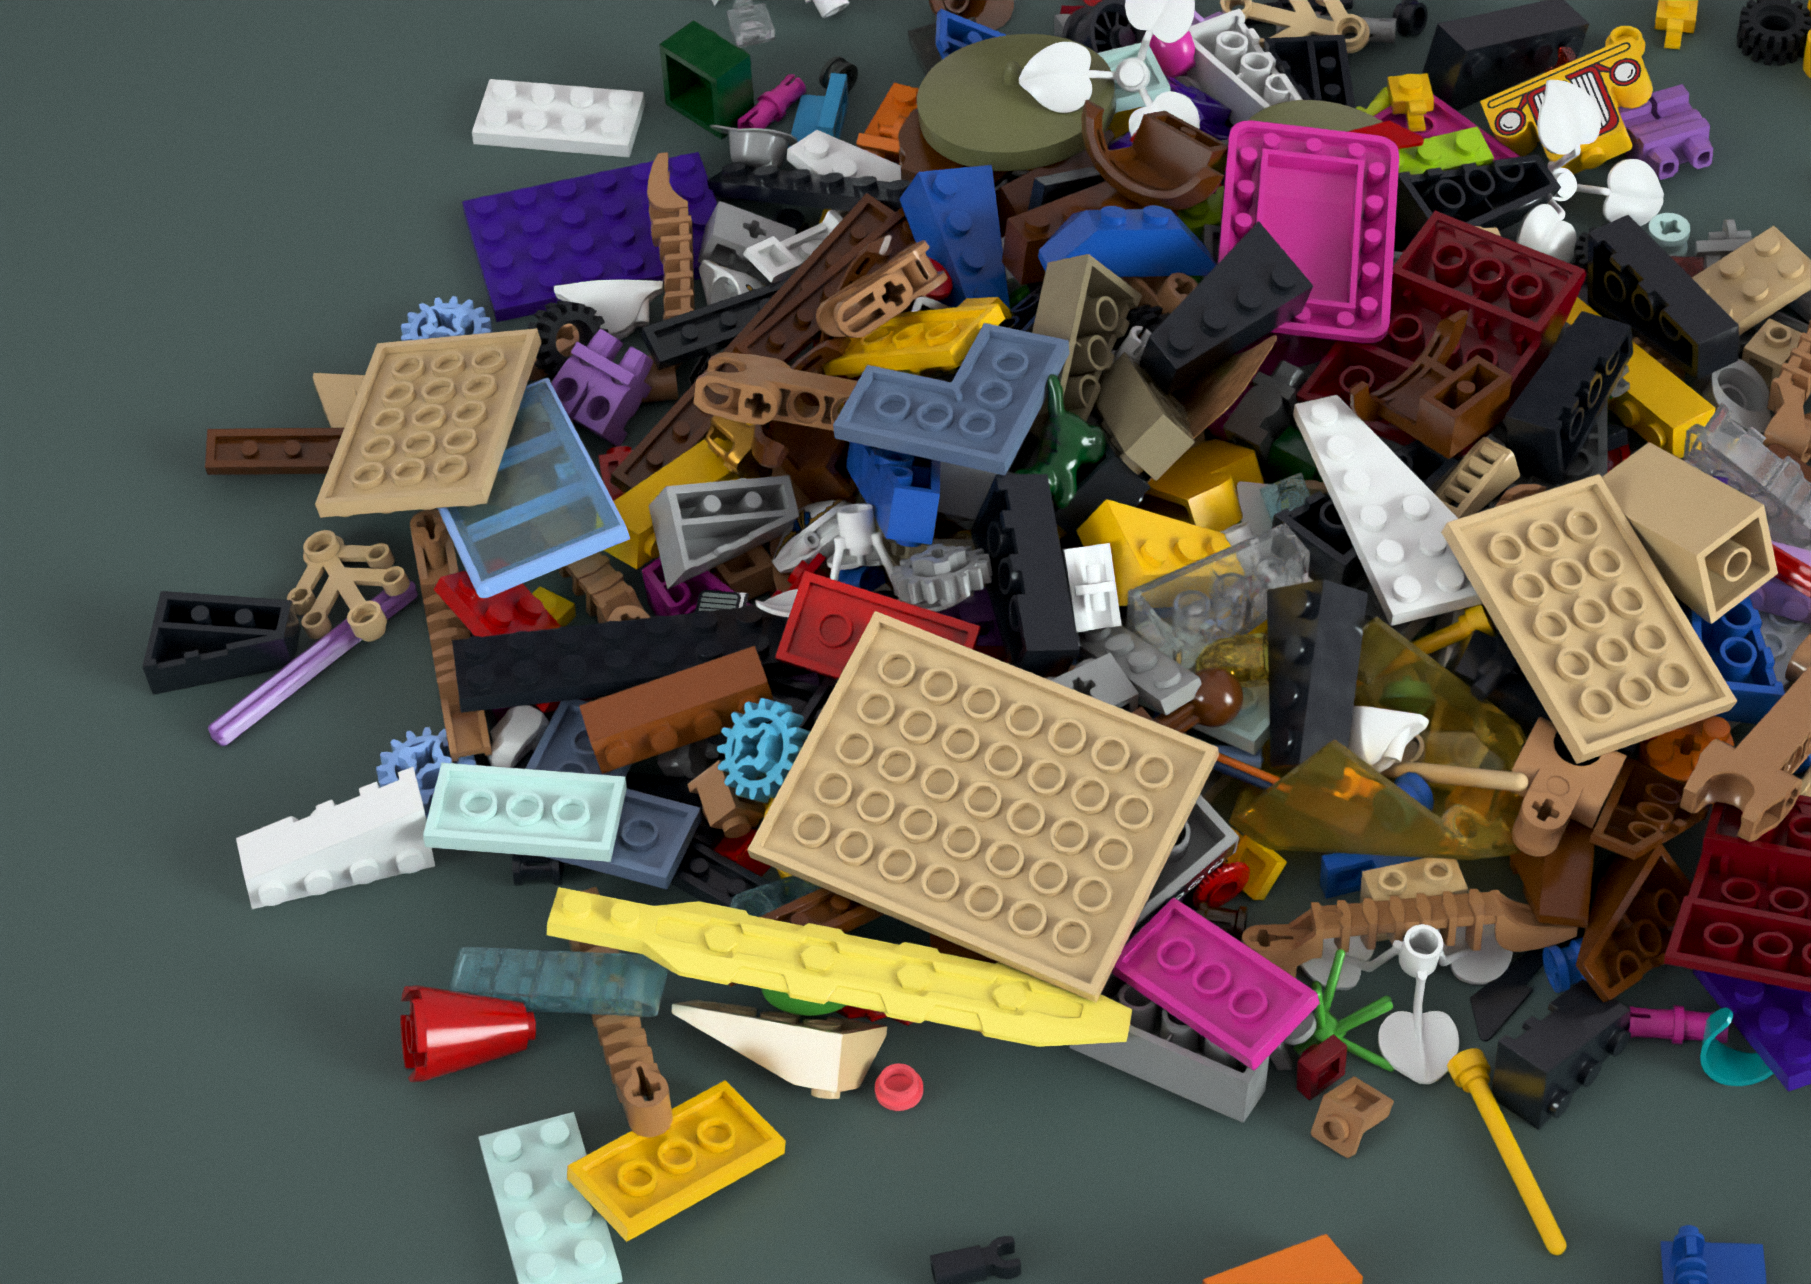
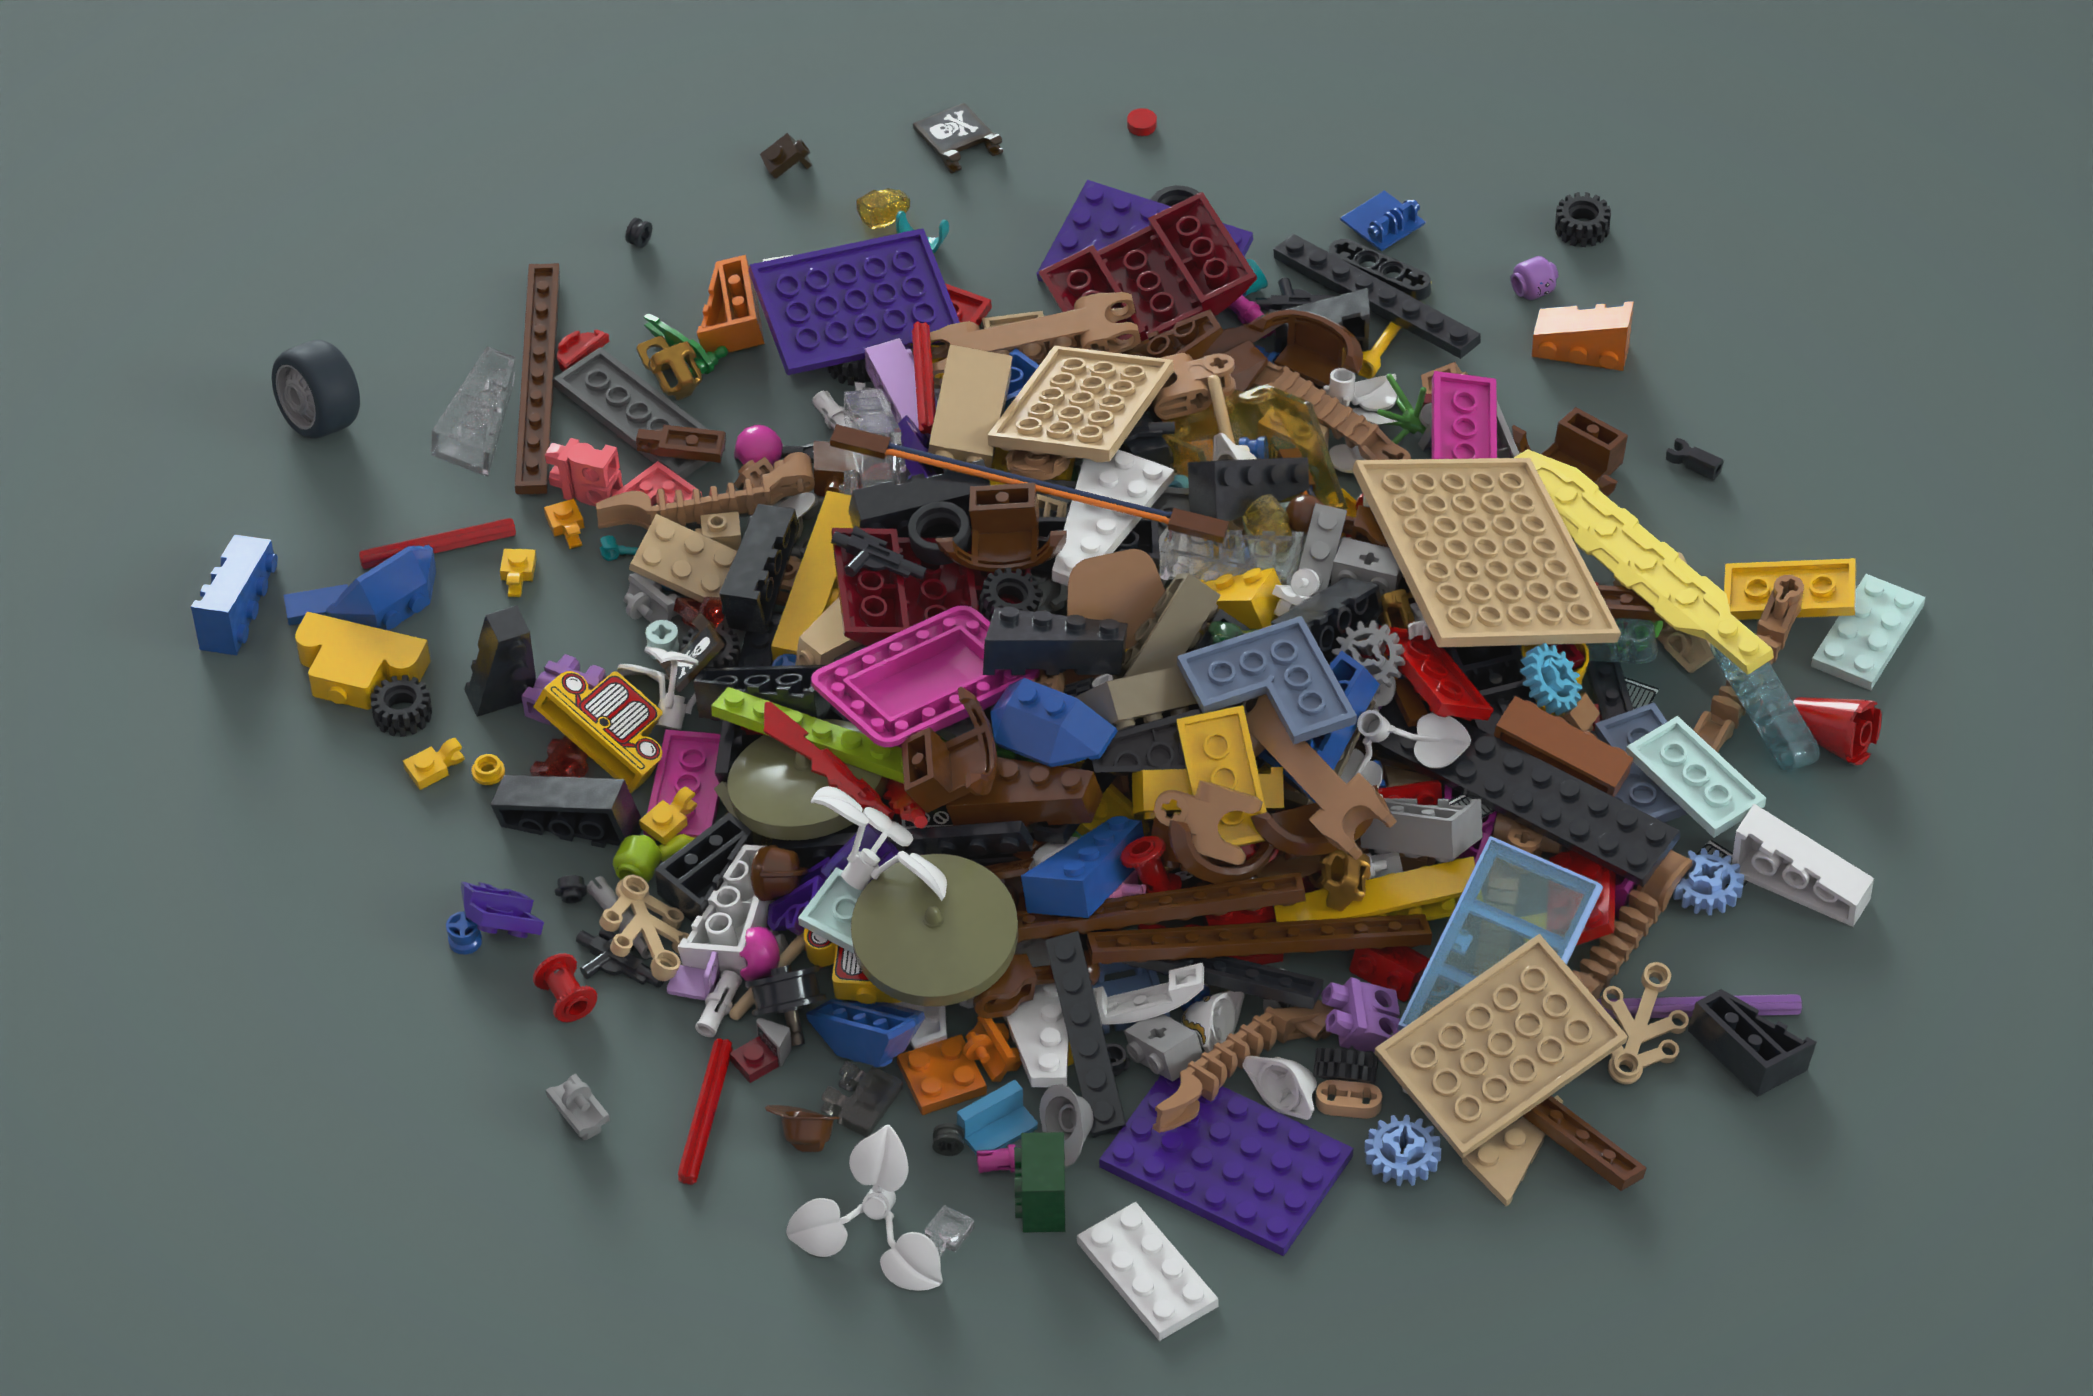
camera: 135 degrees left, 0 degrees up
(1091, 1126) = (1586, 445): none -> reddish brown piece
(1241, 90) = (775, 872): none -> reddish brown piece
(1298, 540) = (880, 446): none -> piece
(1347, 353) = (1009, 584): none -> black tyre
(1363, 990) = (1372, 416): none -> white sticker
(1388, 57) = (638, 857): none -> lime head
(1505, 992) = (1313, 345): none -> reddish brown piece
(1506, 341) = (934, 514): none -> black tyre
(1513, 278) = (872, 554): none -> black piece
(1572, 1156) = (1383, 298): none -> black plate
(1588, 197) = (701, 647): none -> flag
(1617, 1195) = (1410, 281): none -> black beam
(1655, 1091) = (1289, 298): none -> black piece
(1730, 80) = (502, 664): none -> black wedge

